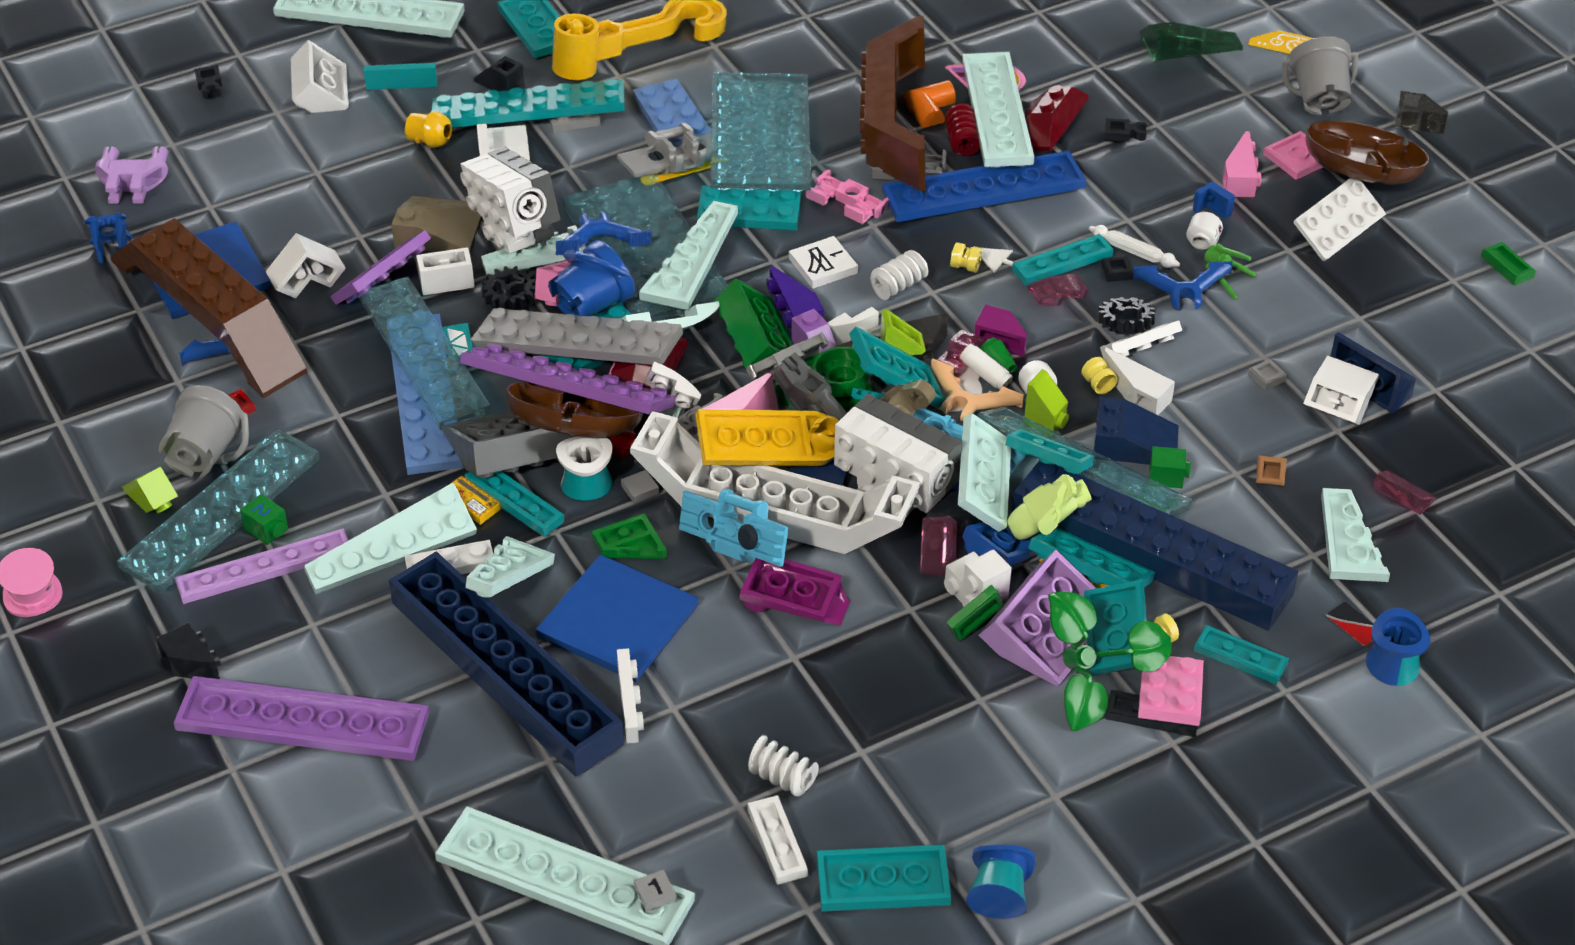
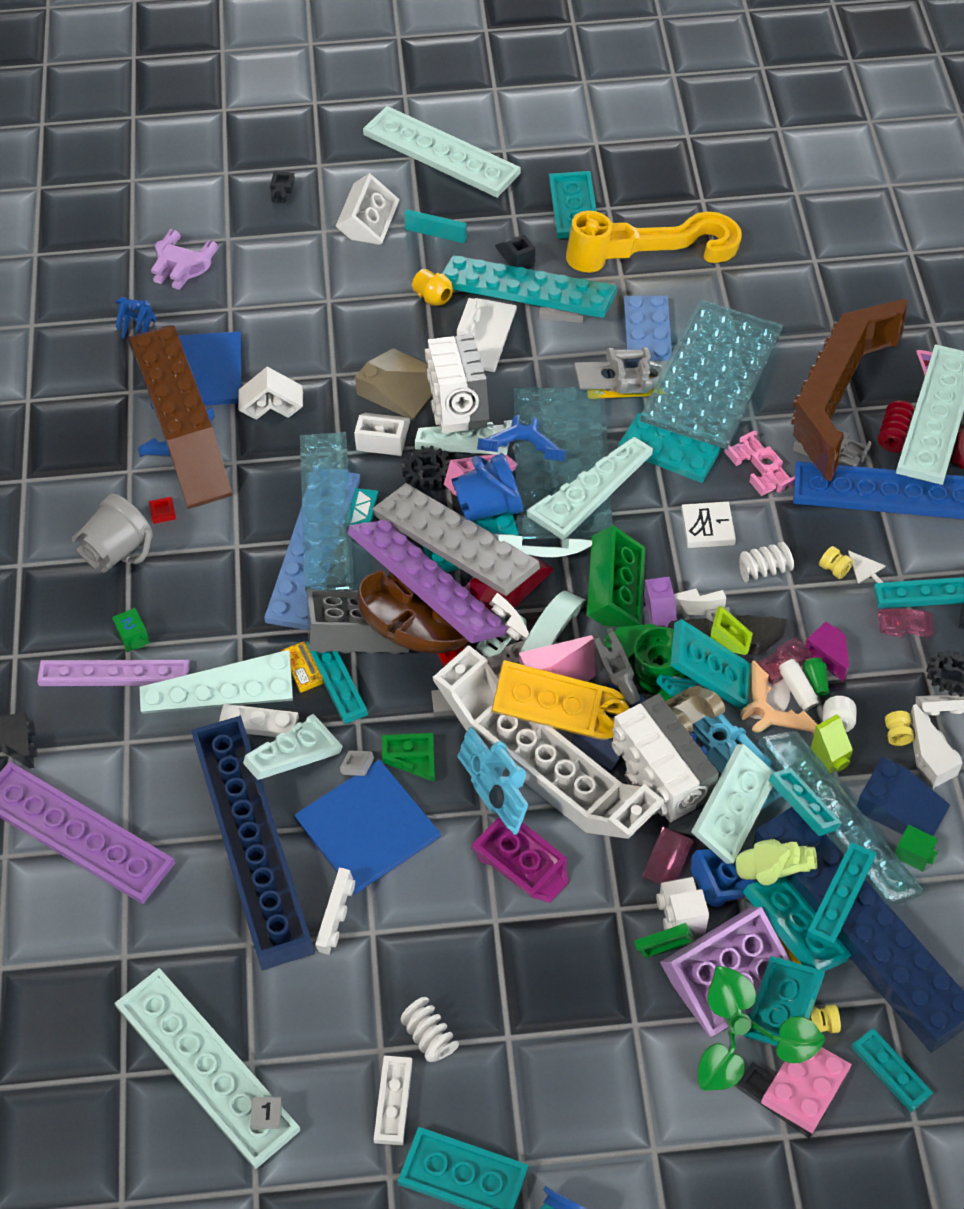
camera: 25 degrees right, 10 degrees up
(151, 491) = (58, 573): slope -> none
(216, 511) = (92, 611): clear light blue plate -> none
(381, 269) = (323, 419): medium lavender plate -> none
(577, 564) = (357, 763): none -> light grey tile
(585, 467) = (403, 672): white hat -> none
(716, 379) = (553, 620): none -> light aqua slope
(791, 296) = (661, 557): dark purple slope -> none
(804, 349) = (600, 624): light grey piece -> none
(927, 100) = (878, 382): orange brick -> none
(1125, 514) = (841, 894): none -> teal plate

